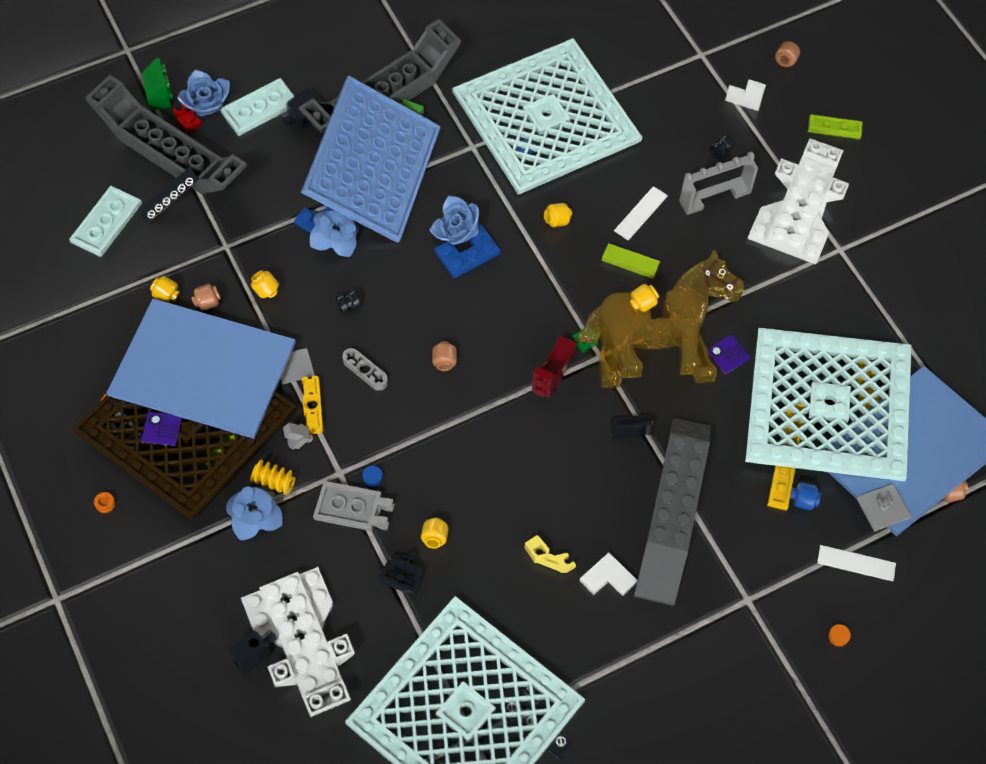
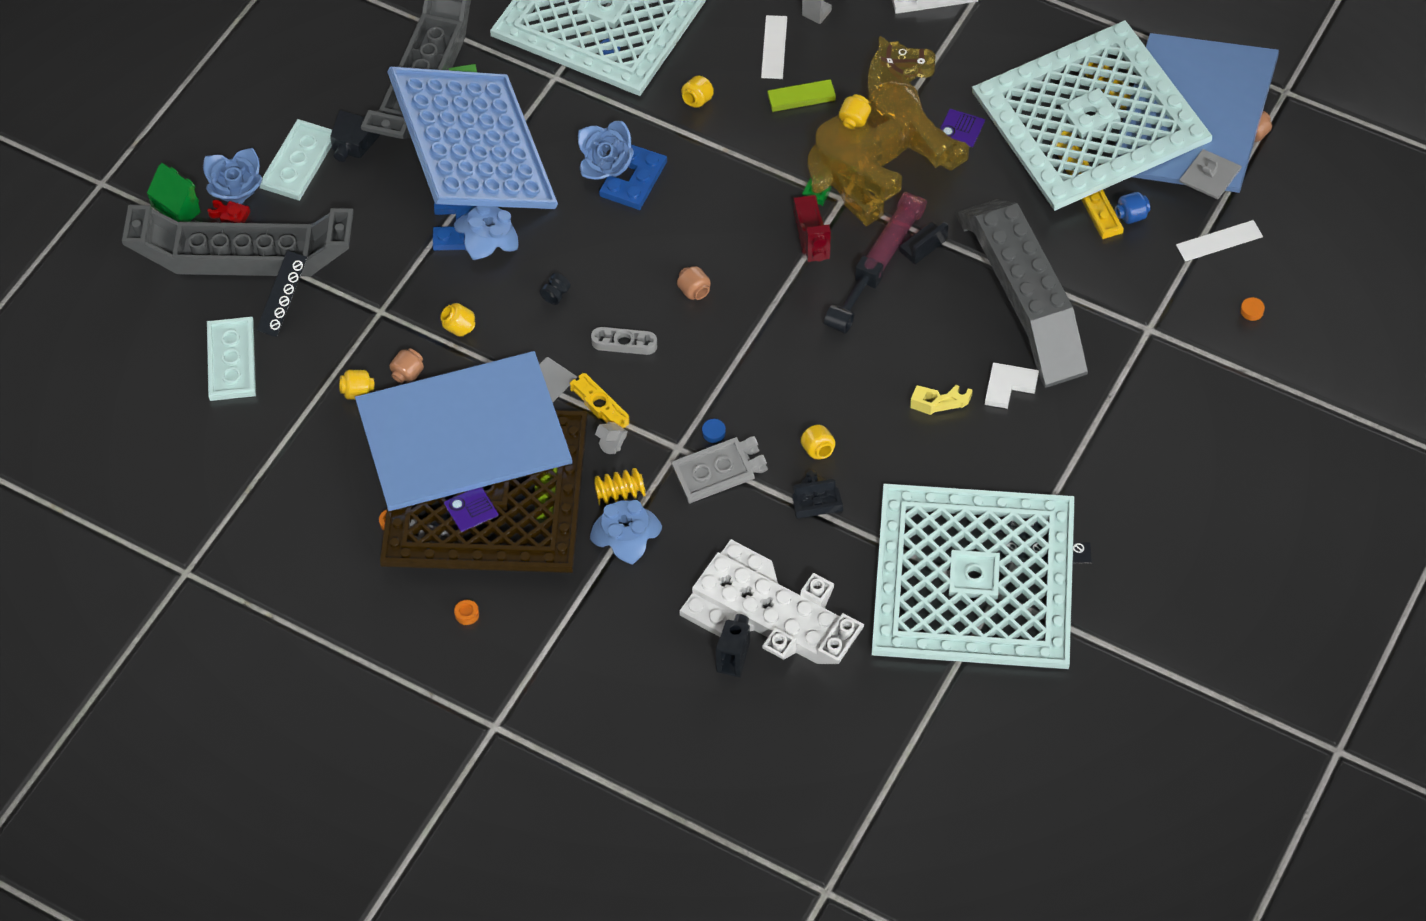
camera: 30 degrees left, 5 degrees down
(575, 423) = (871, 267): none -> piece

